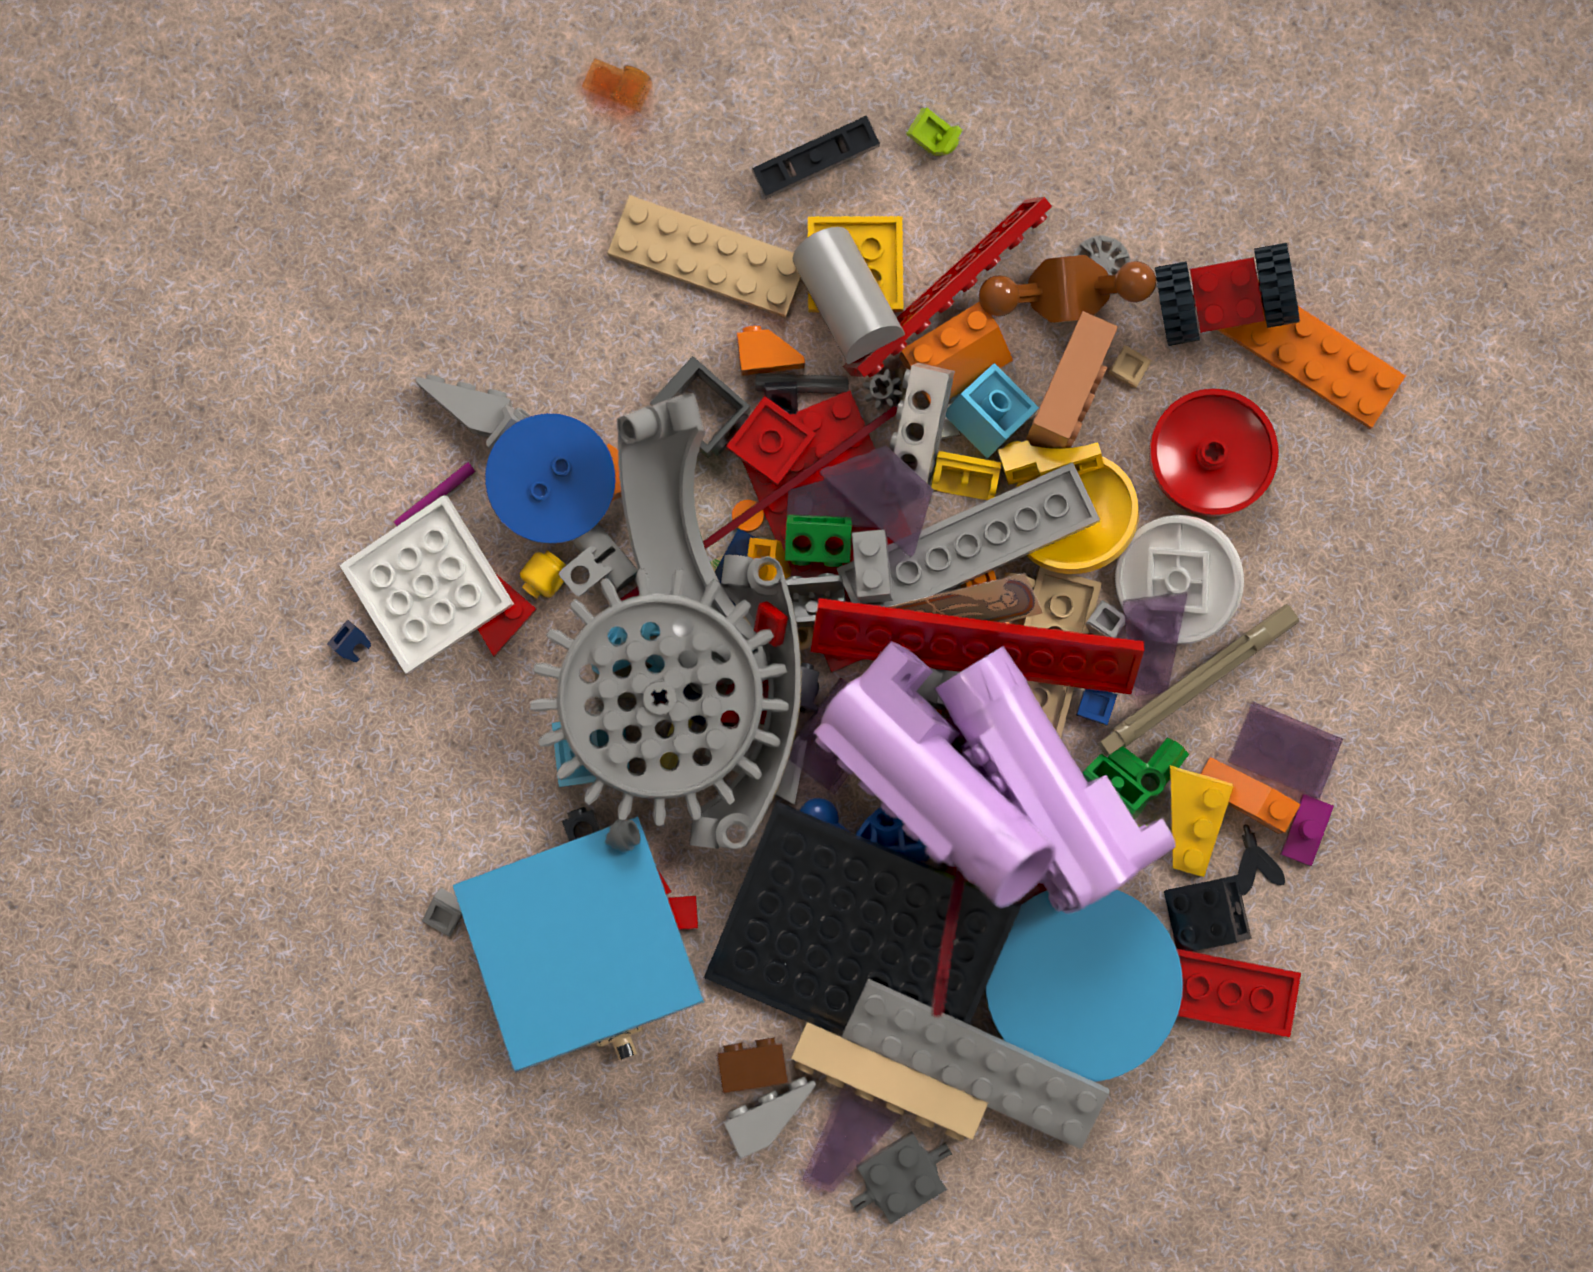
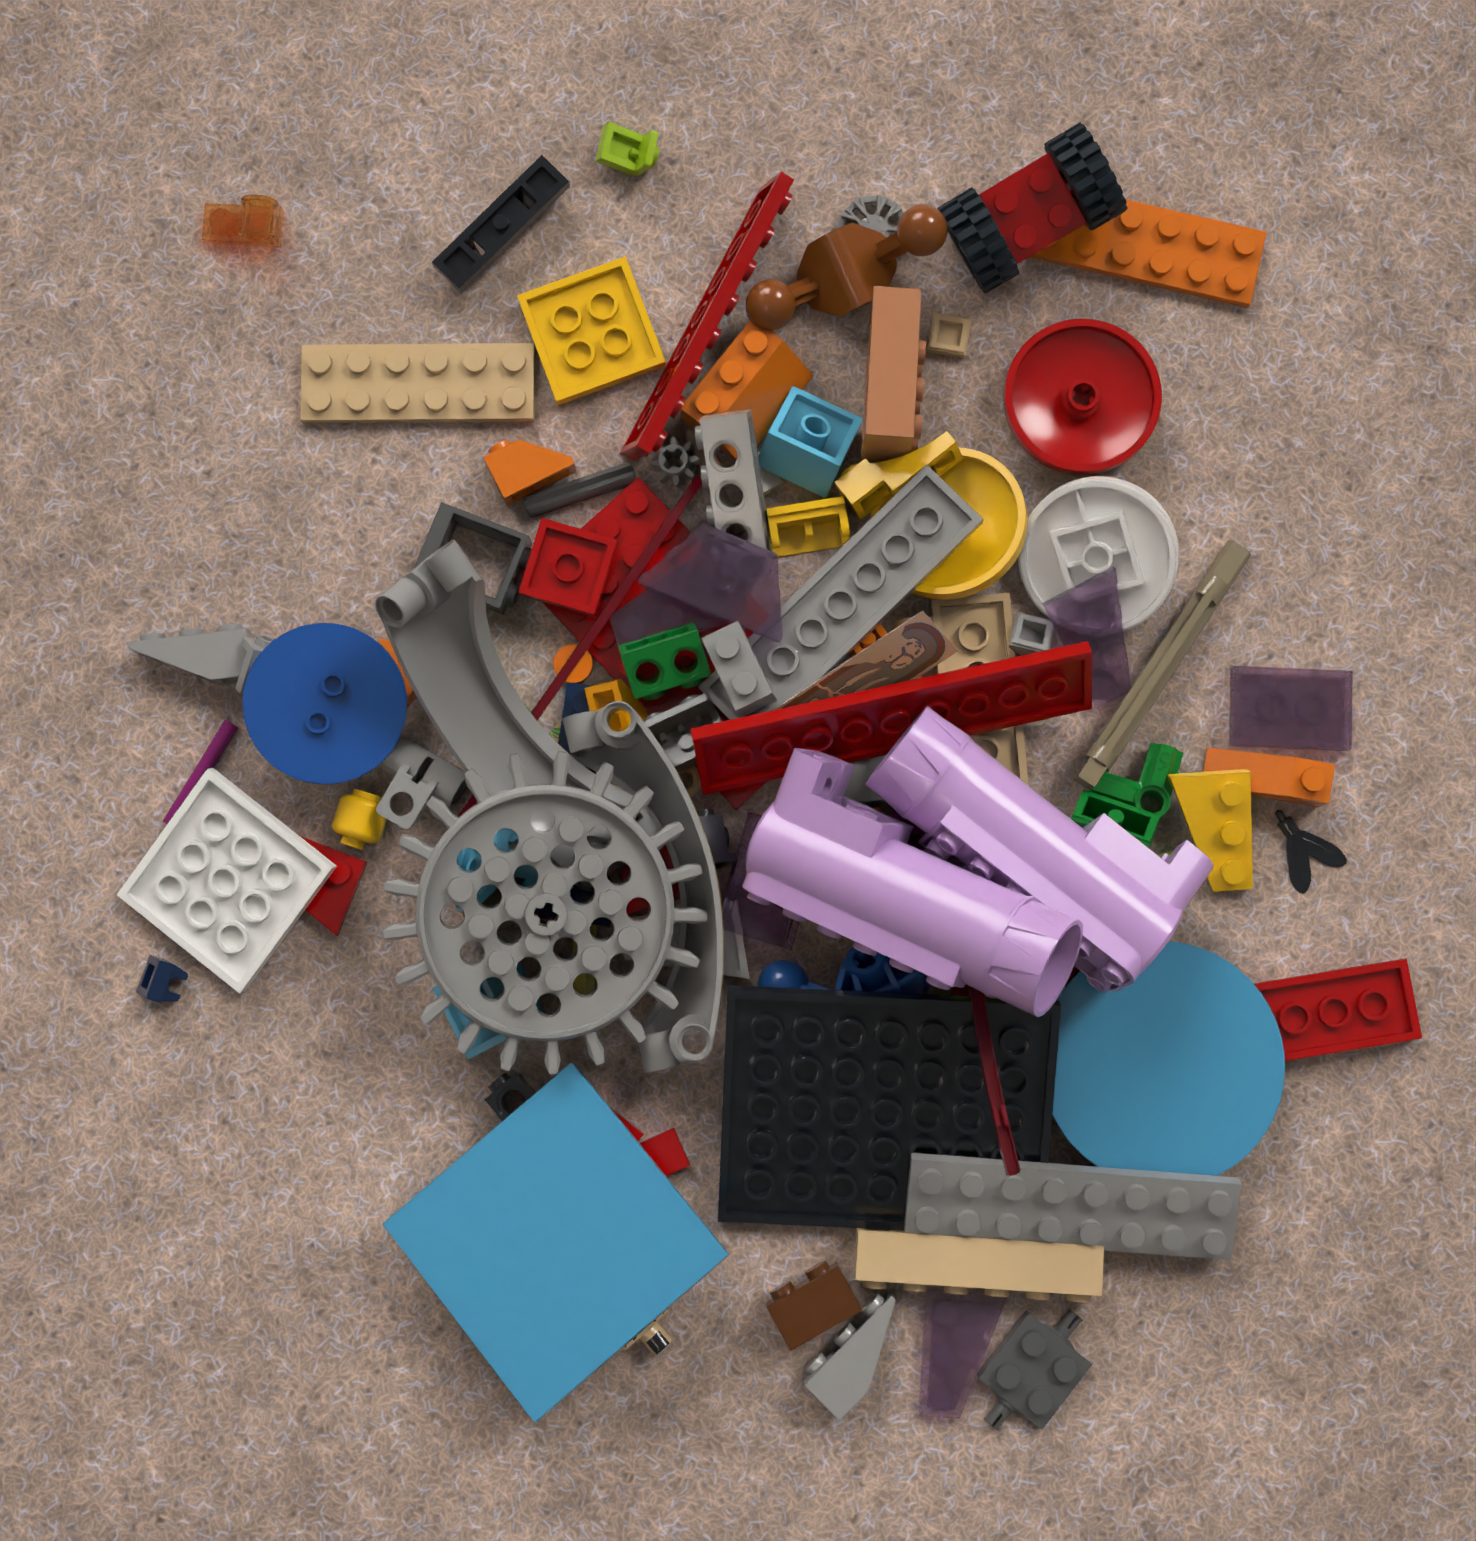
camera: 15 degrees left, 0 degrees up
(443, 912) = (384, 1257): light grey slope -> none
(623, 835) = (562, 1092): dark grey plate -> none
(771, 618) = (645, 772): red tile -> none
(784, 395) = (563, 509): black tile -> none
(846, 293) = (592, 364): light grey brick -> none
(1096, 705) = (1056, 736): blue plate -> none
(1207, 914) = (1273, 931): black bracket -> none
(1307, 830) = (1350, 791): magenta tile -> none

